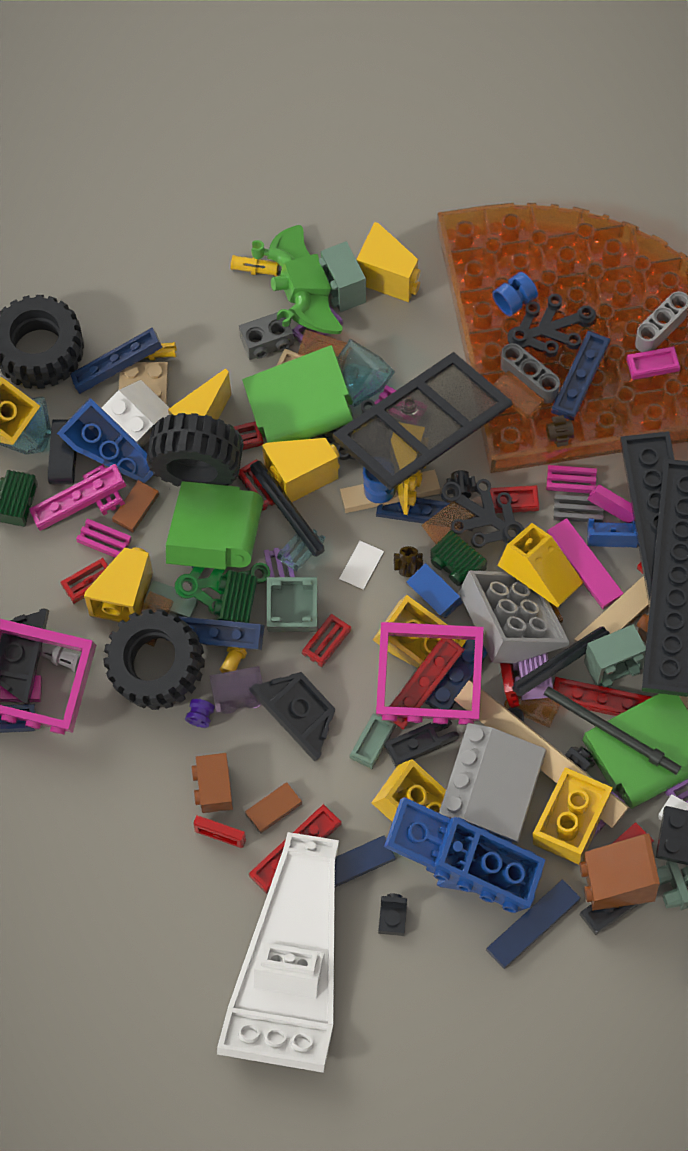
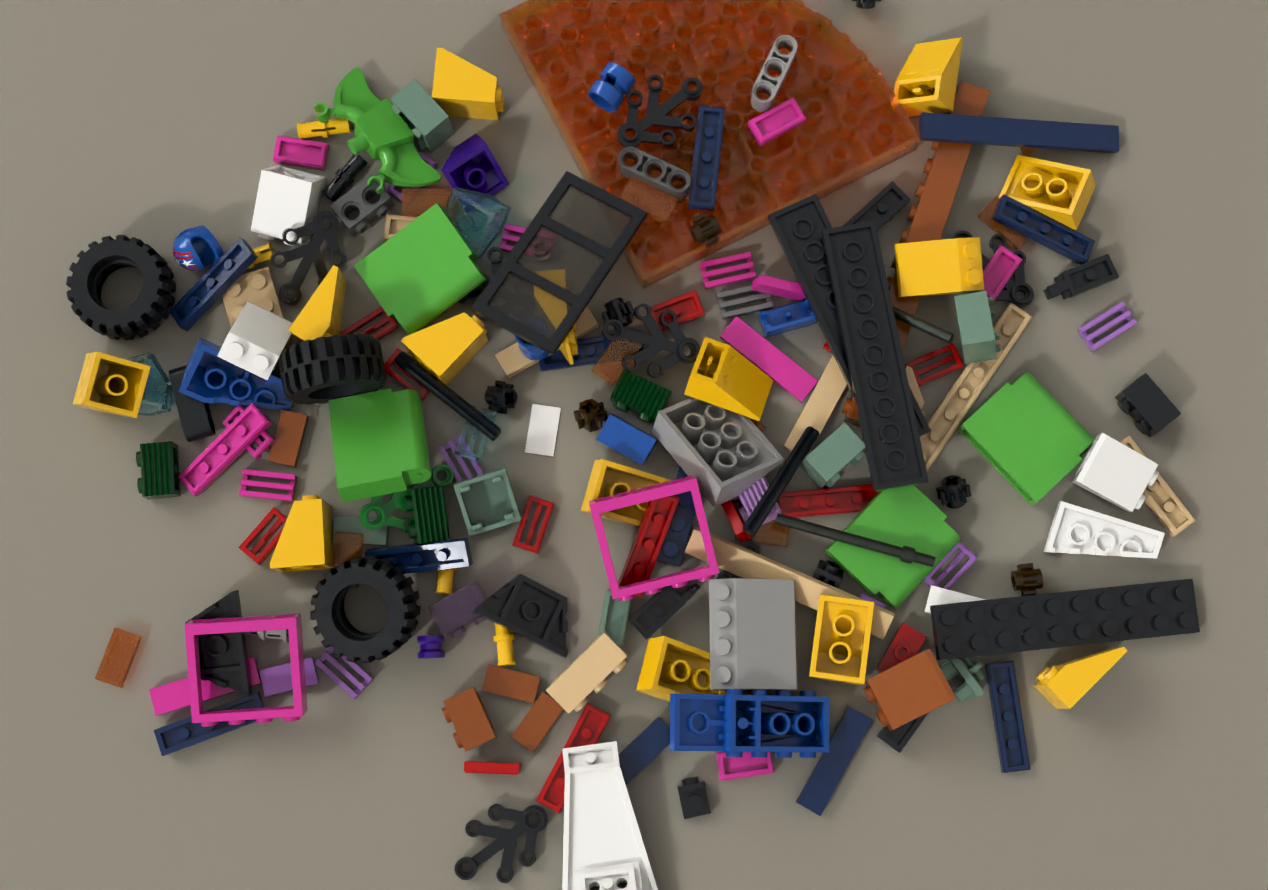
camera: 20 degrees left, 15 degrees up
(55, 702) = (279, 678): none -> medium lavender tile
(106, 695) = (361, 686): none -> medium lavender tile
(108, 328) = (196, 248): none -> blue helmet
(201, 316) = (286, 201): none -> white slope
(208, 359) = (310, 252): none -> black plant
(209, 899) = (505, 839): none -> black plant
(228, 280) = (301, 153): none -> dark pink tile
(259, 308) = (344, 177): none -> black pin
(260, 767) = (511, 683): none -> dark orange tile
(267, 727) = (504, 646): none -> yellow pin
(332, 775) = (587, 673): none -> tan brick
(333, 523) = (501, 397): none -> black gear
(375, 331) = (474, 168): none -> dark purple slope
(449, 901) = (743, 766): none -> dark pink tile

